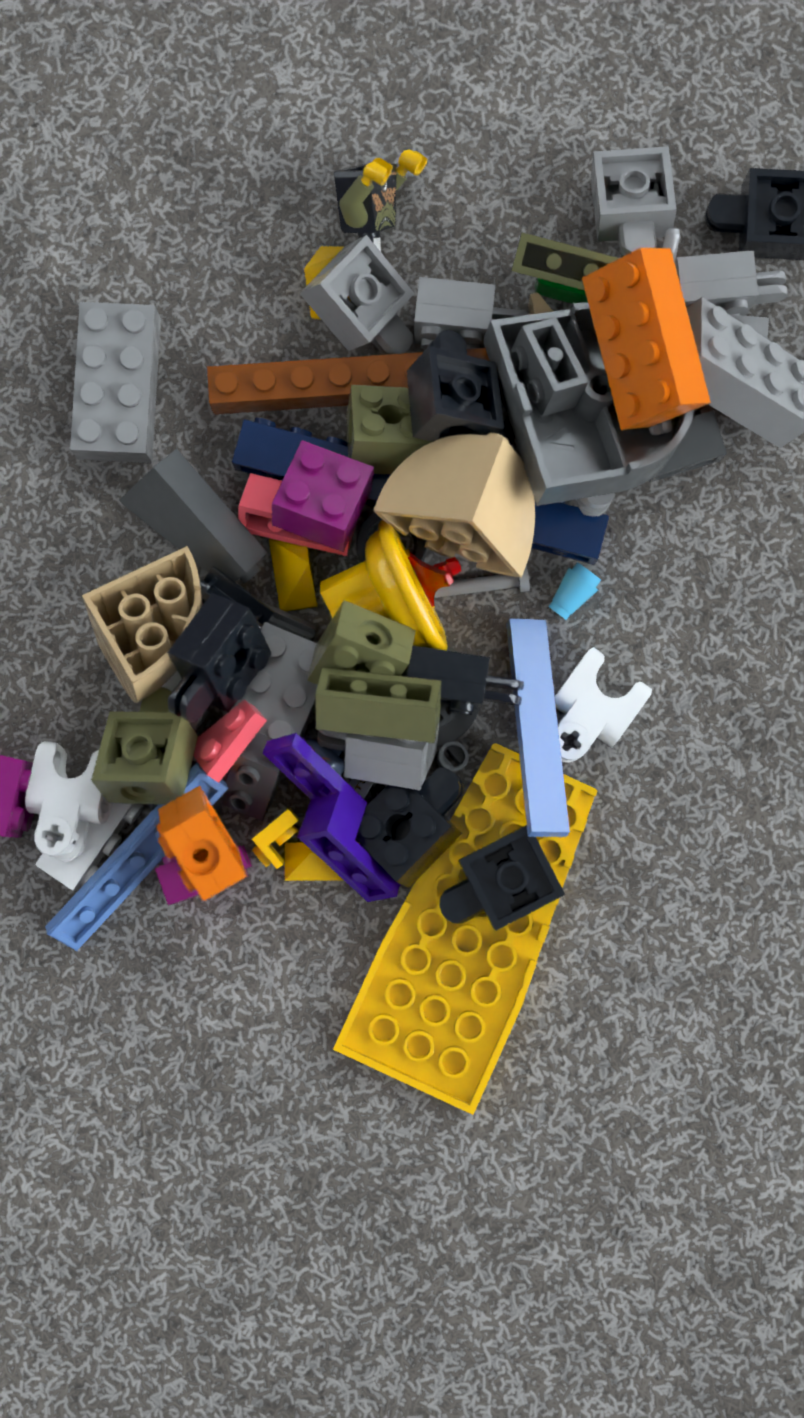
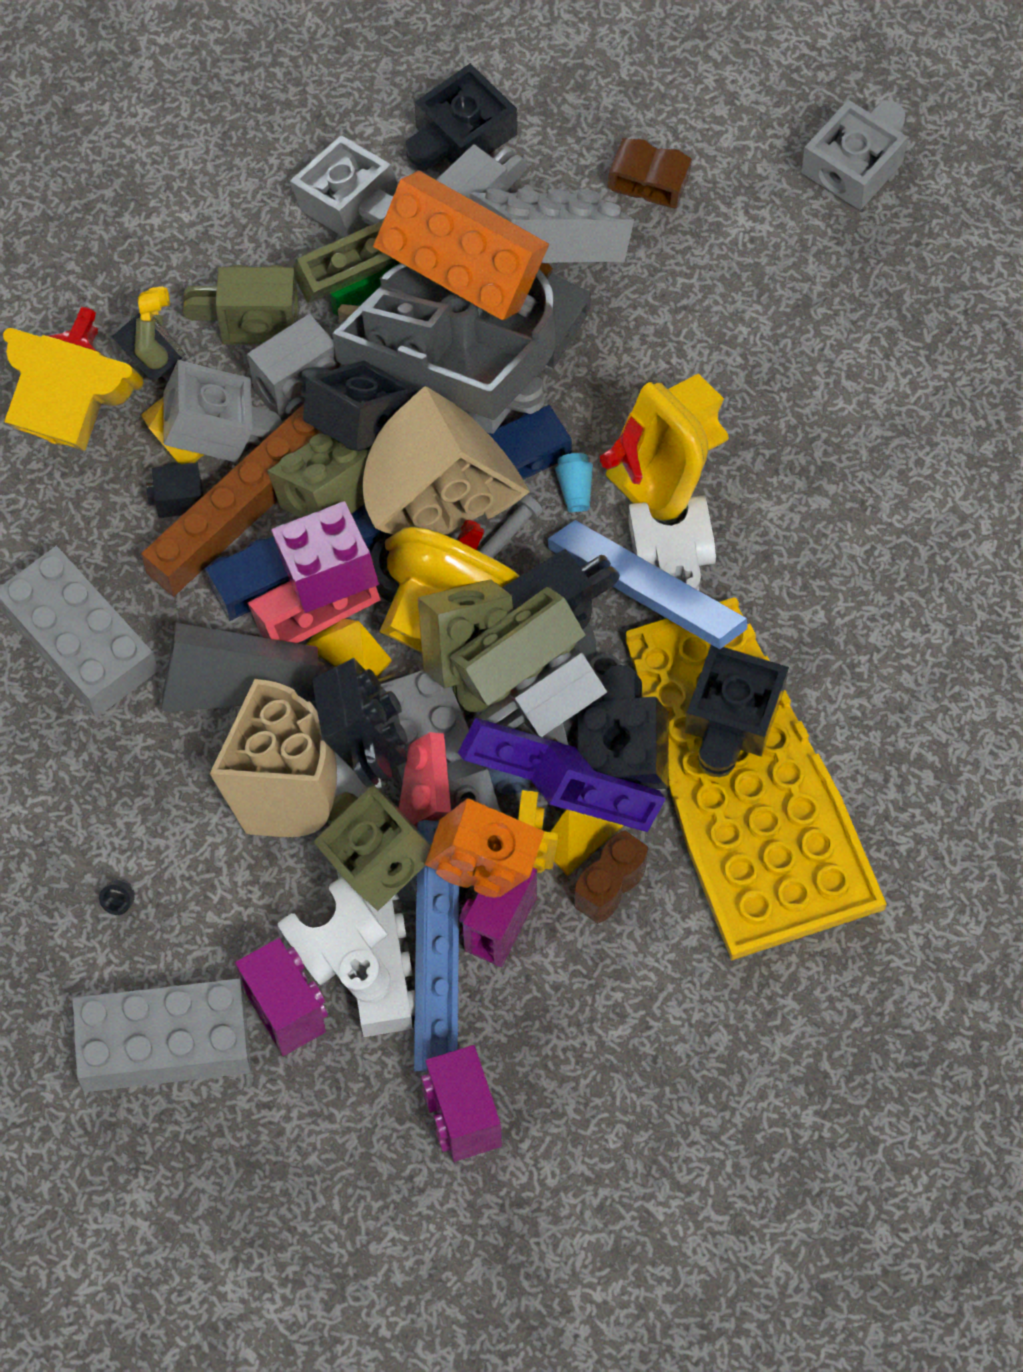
camera: 45 degrees left, 20 degrees down
(46, 986) = (465, 1108): none -> magenta brick
(275, 175) = (65, 382): none -> yellow piece
(286, 332) = (174, 488): none -> black brick
(294, 916) = (618, 871): none -> reddish brown brick
(470, 230) = (246, 302): none -> olive brick
(656, 631) = (666, 445): none -> yellow piece

